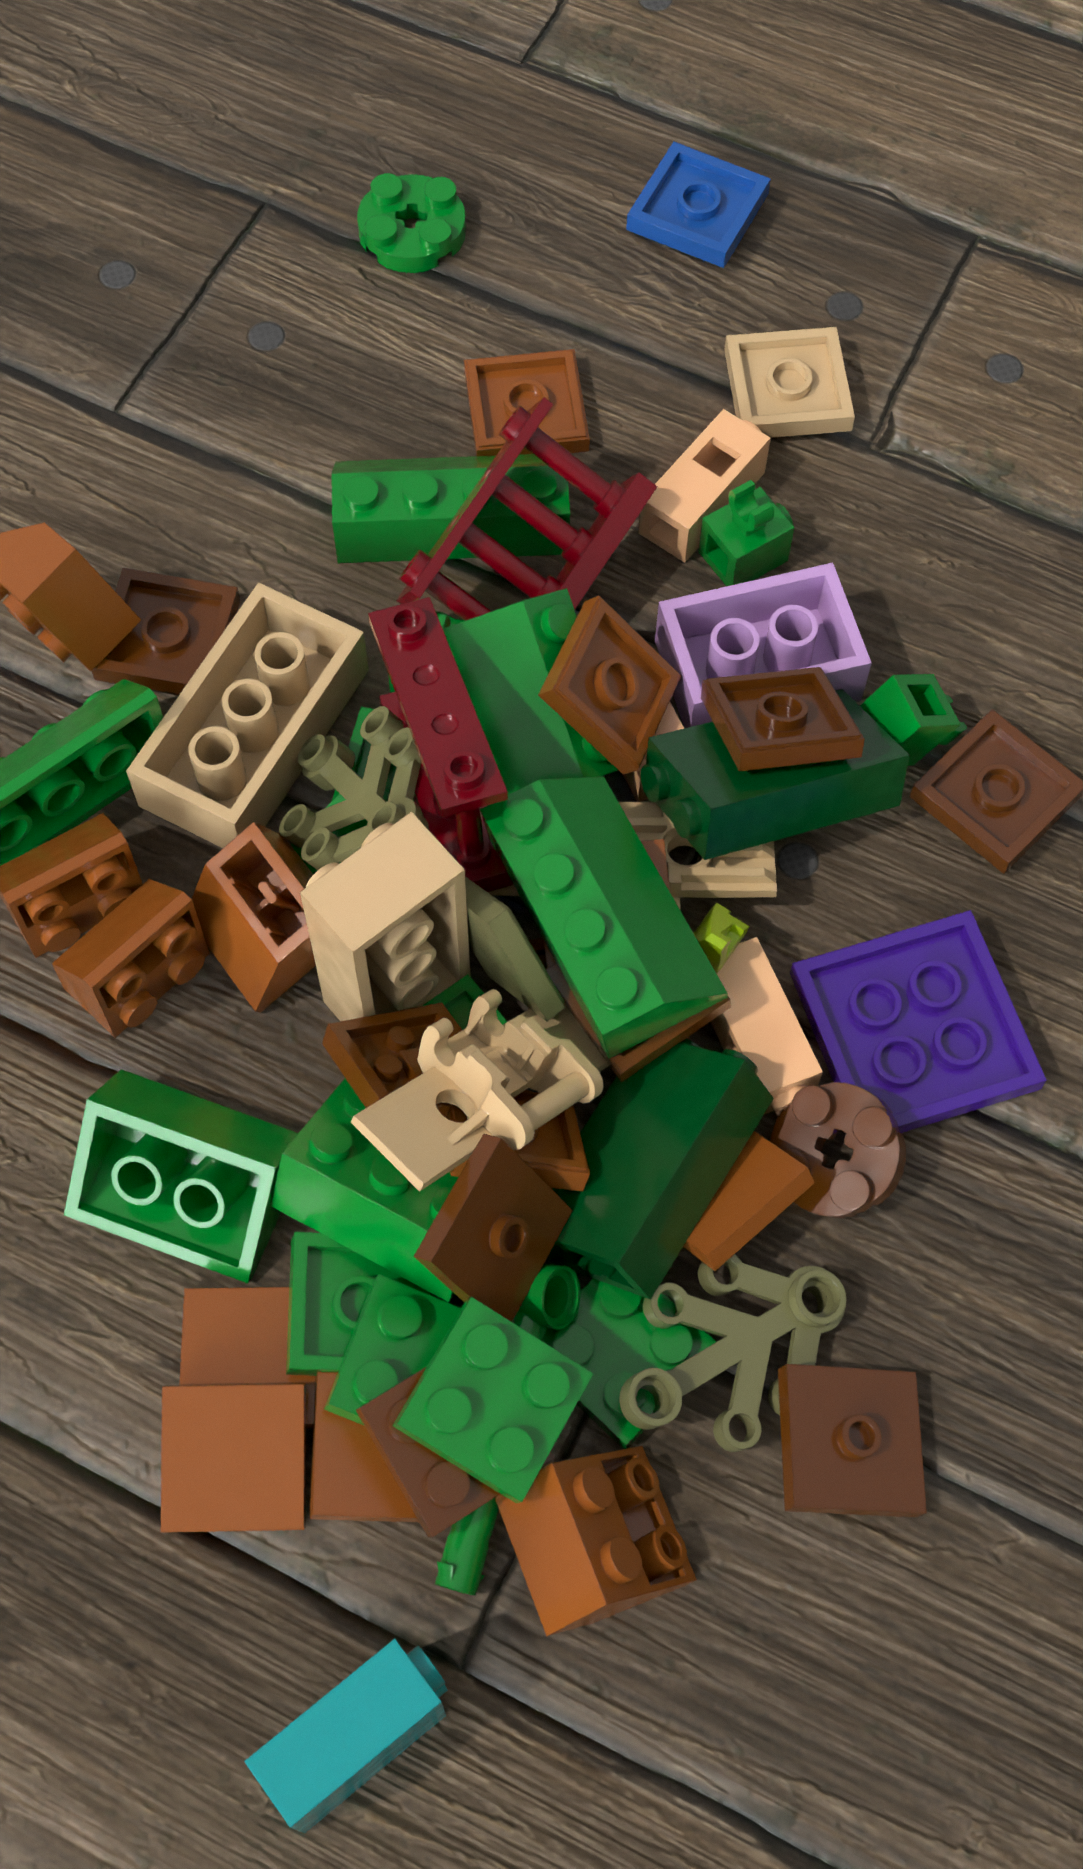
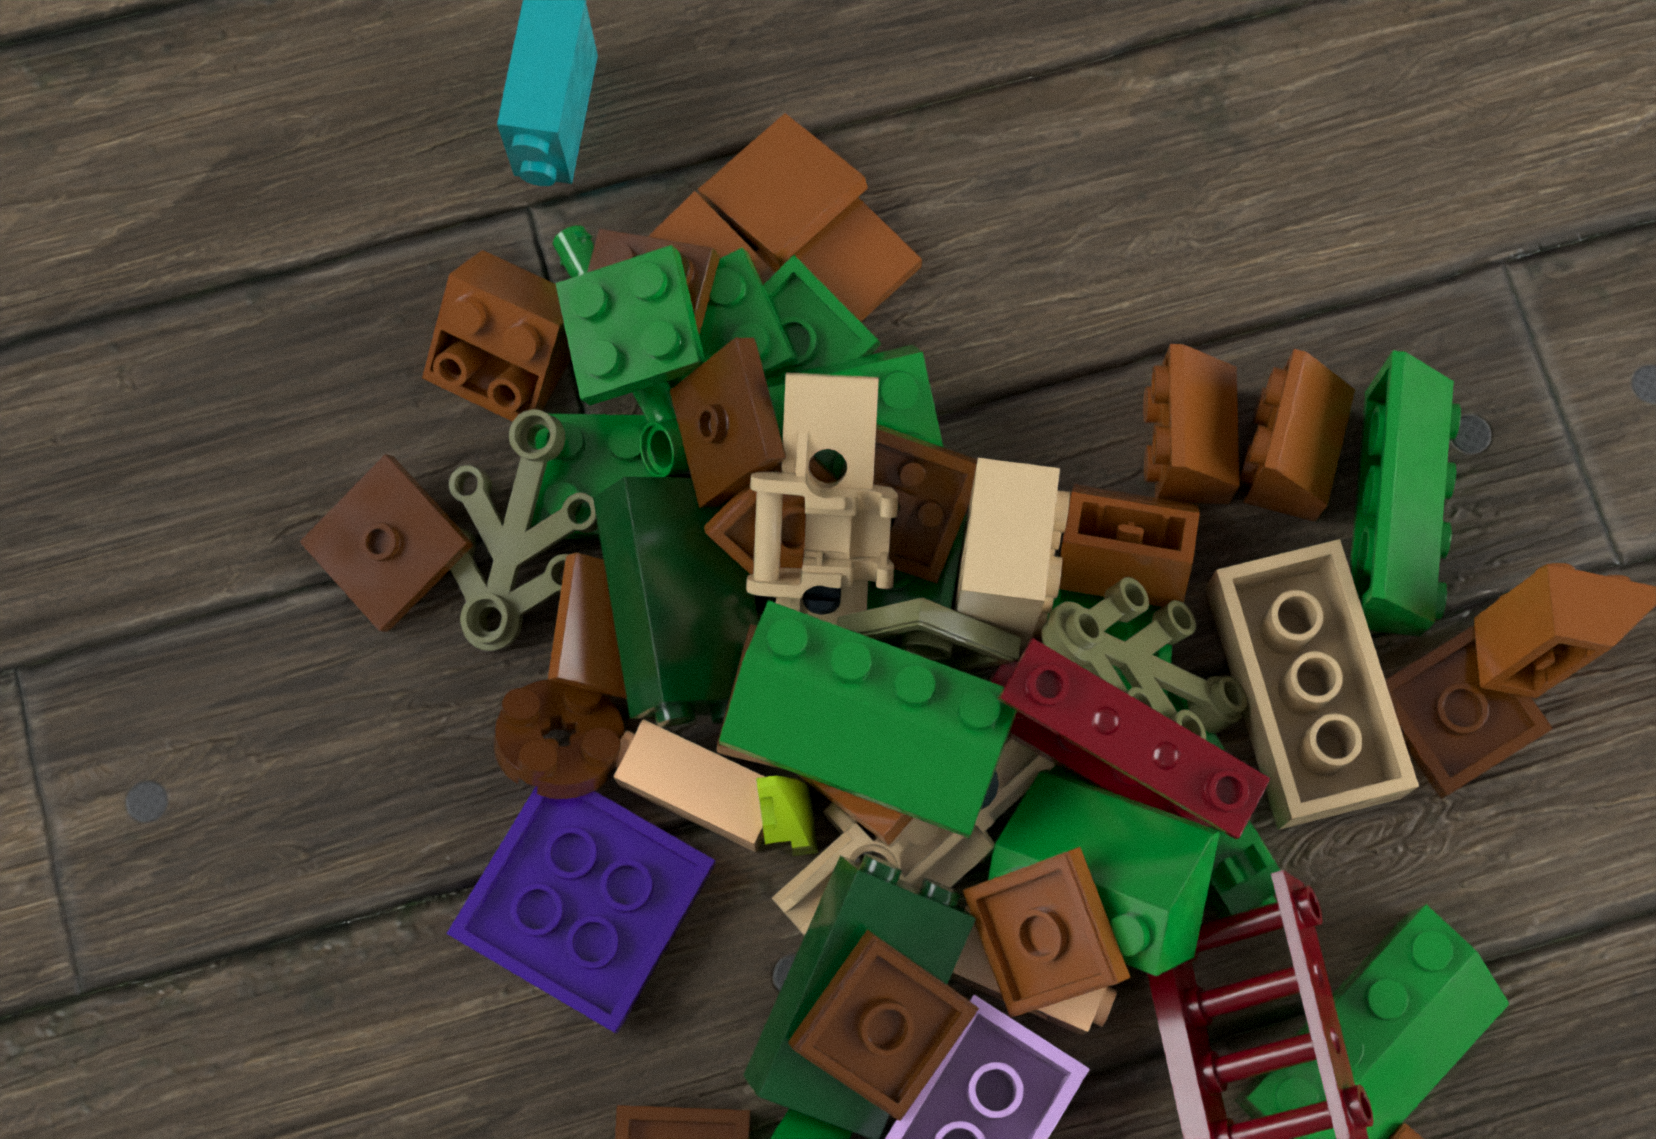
camera: 140 degrees right, 10 degrees up
(177, 1174) = (1004, 326): green slope -> none

